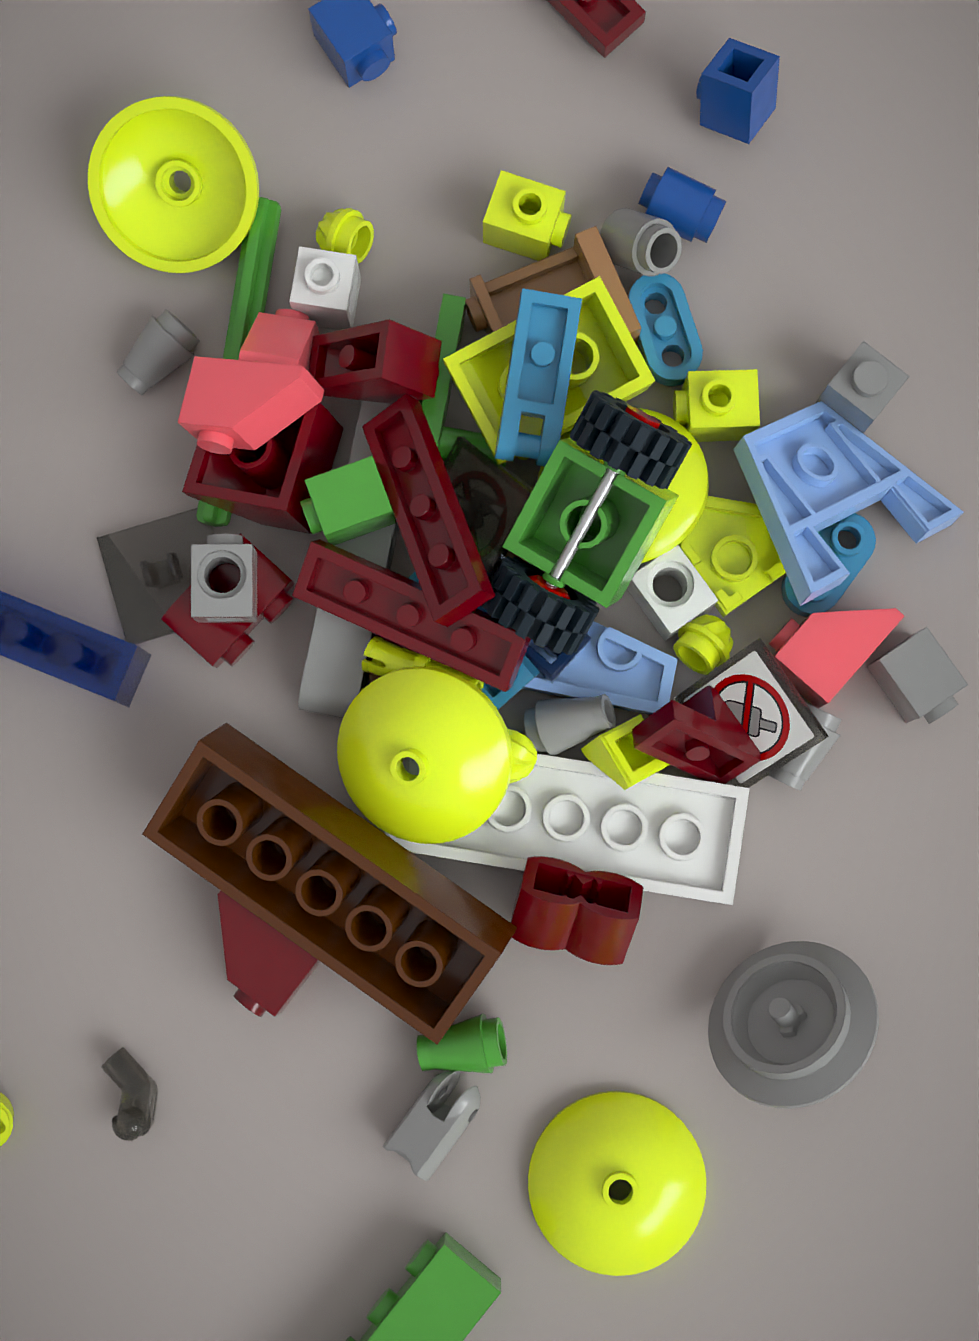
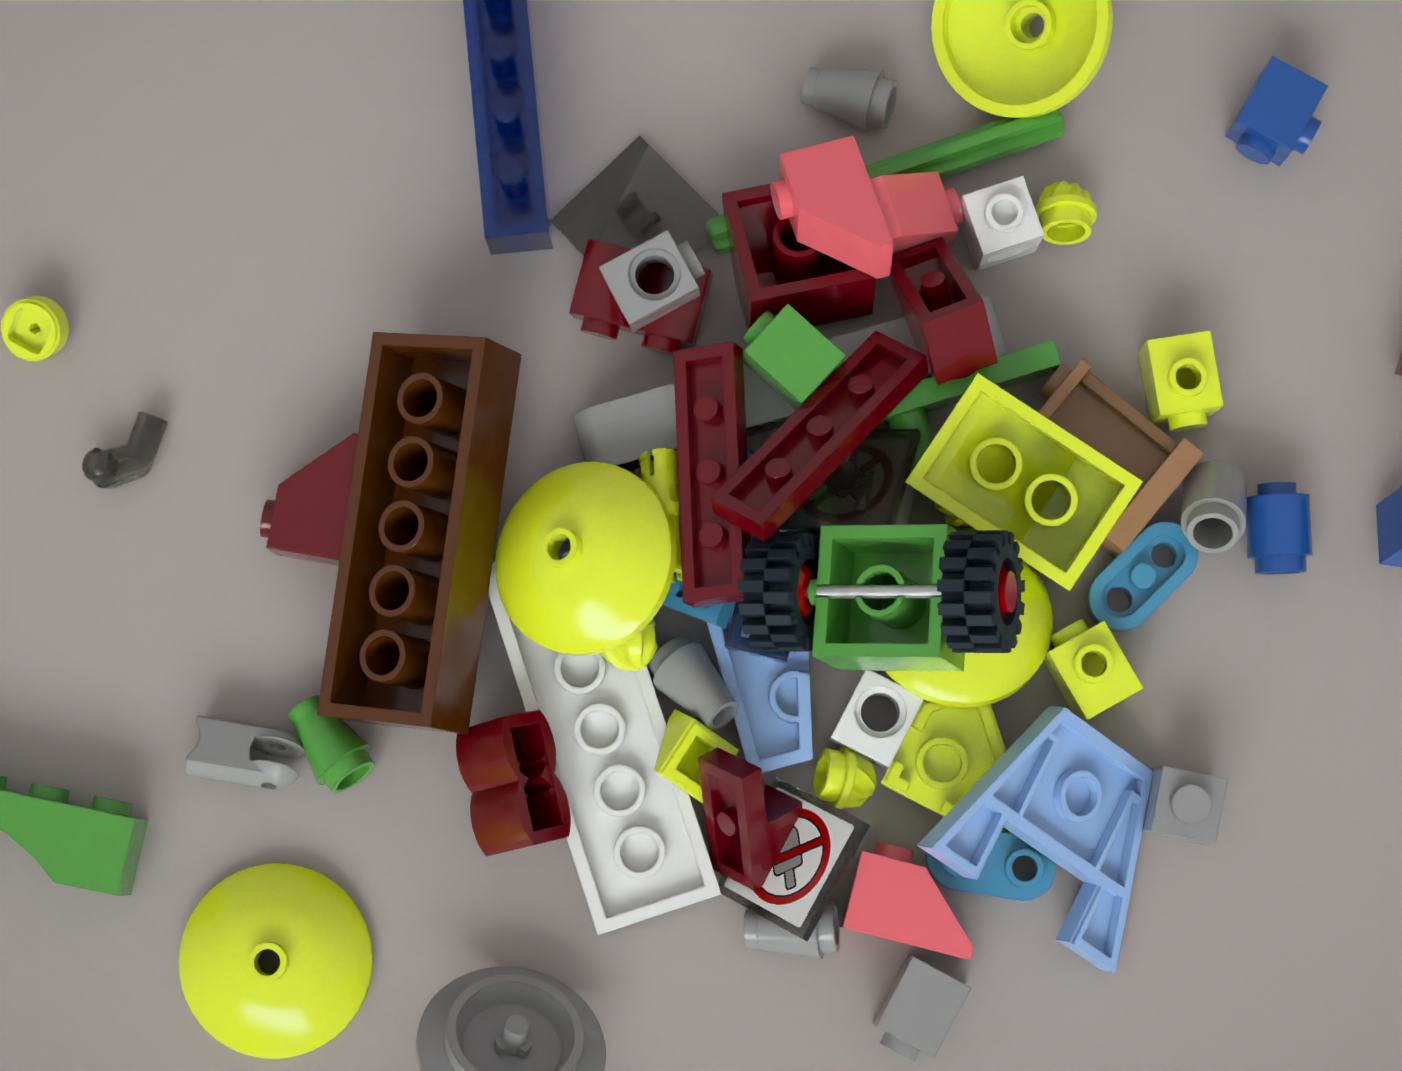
camera: 65 degrees right, 0 degrees up
(538, 374) = (1009, 472): dark azure plate -> none

